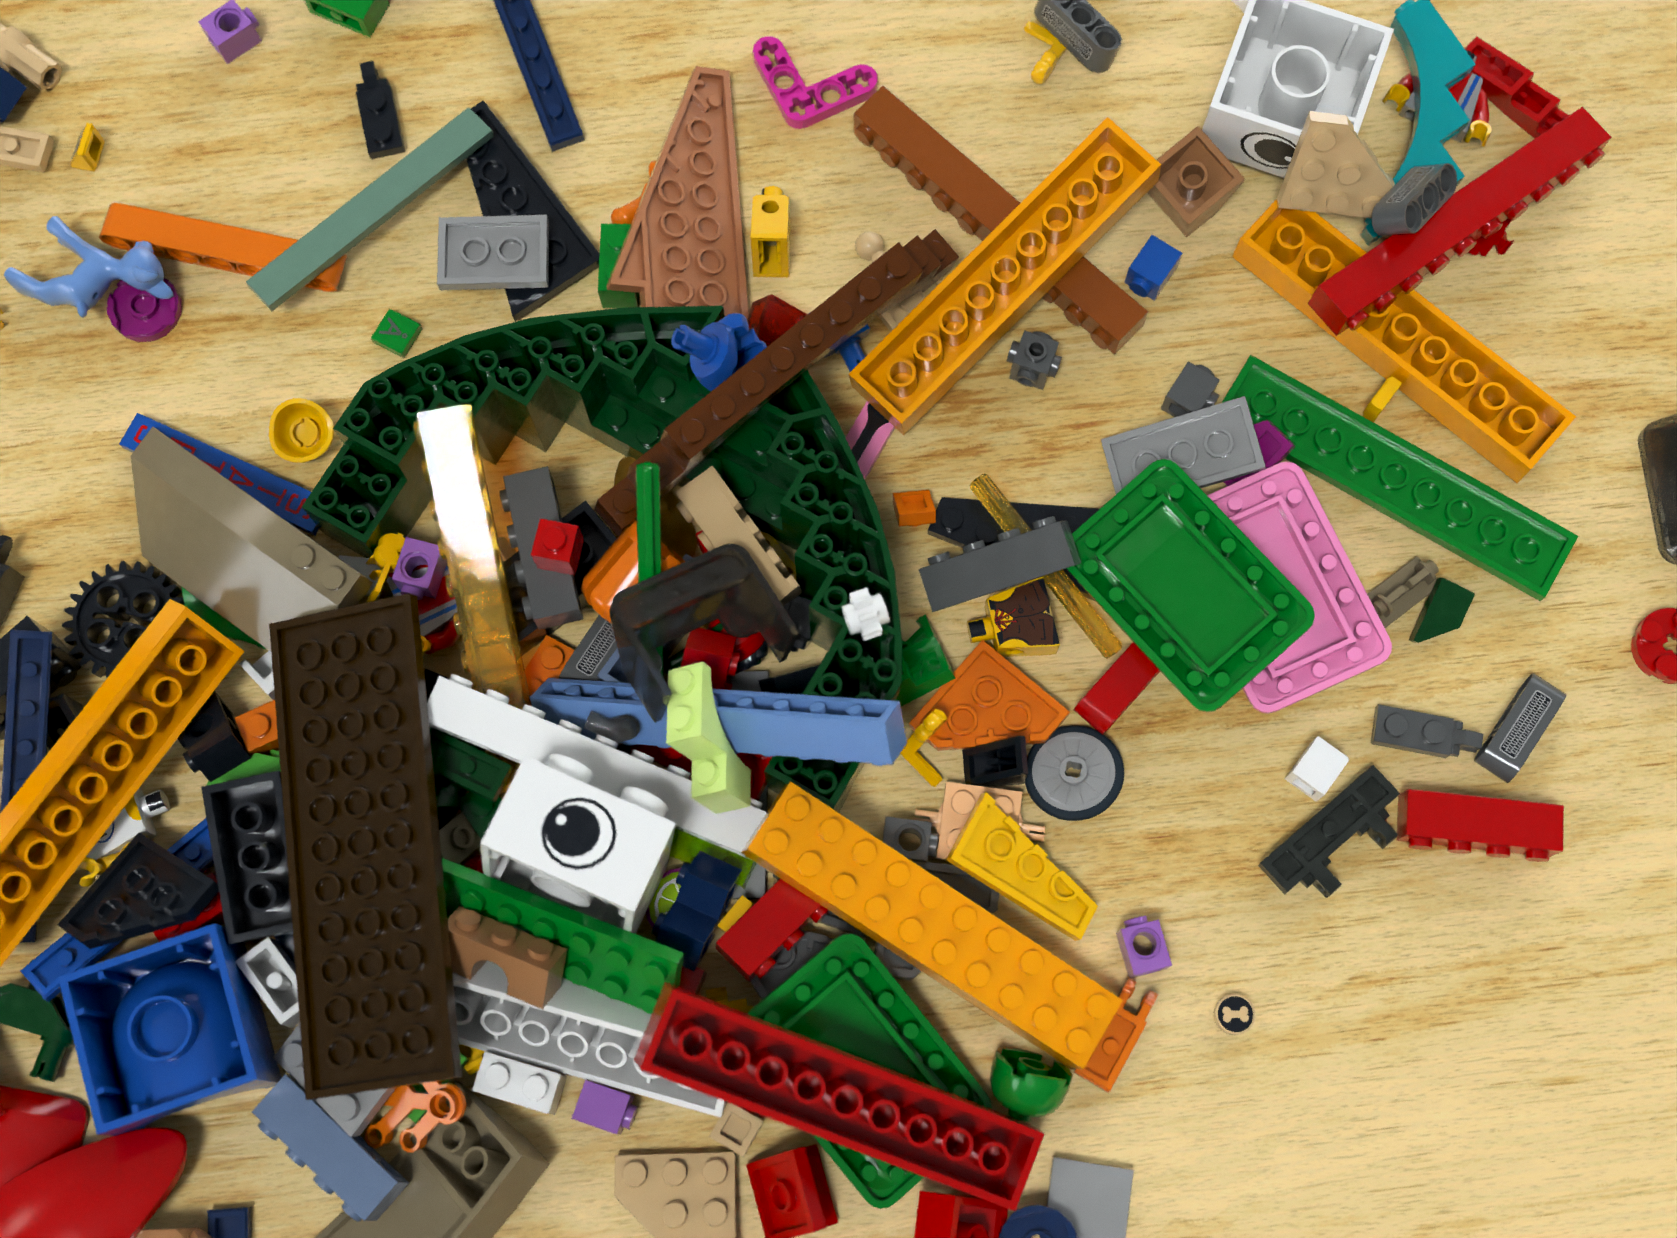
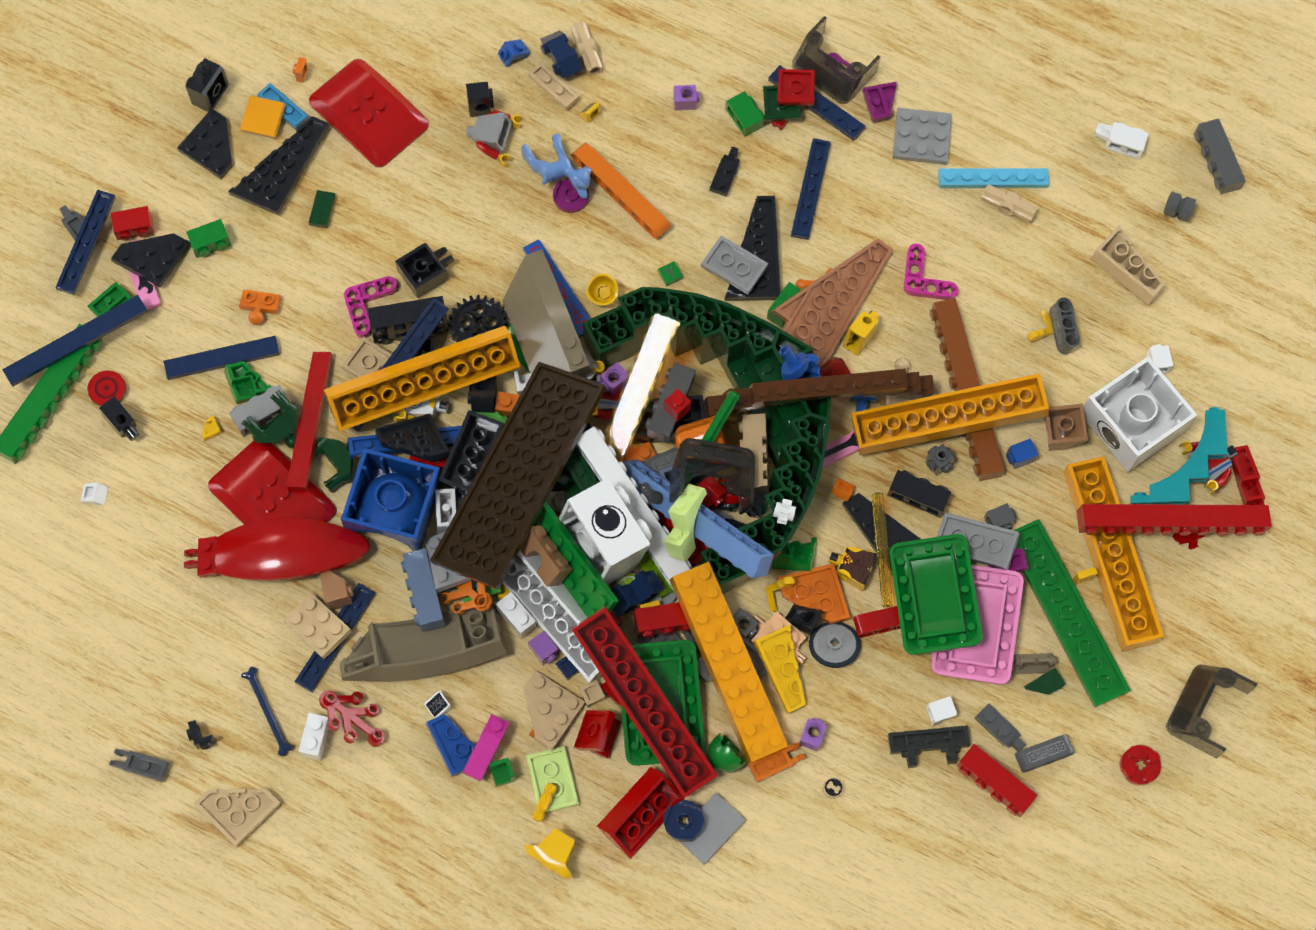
camera: 30 degrees right, 5 degrees down
(369, 209) = (694, 213): sand green tile -> none
(386, 556) = (604, 364): yellow piece -> none
(664, 1114) = (566, 668): none -> dark blue tile
(999, 565) = (861, 535): dark grey brick -> none
(1038, 435) = (919, 493): none -> black brick
(1333, 170) = (1126, 461): tan plate -> none
(1414, 199) = (1154, 495): dark grey beam -> none

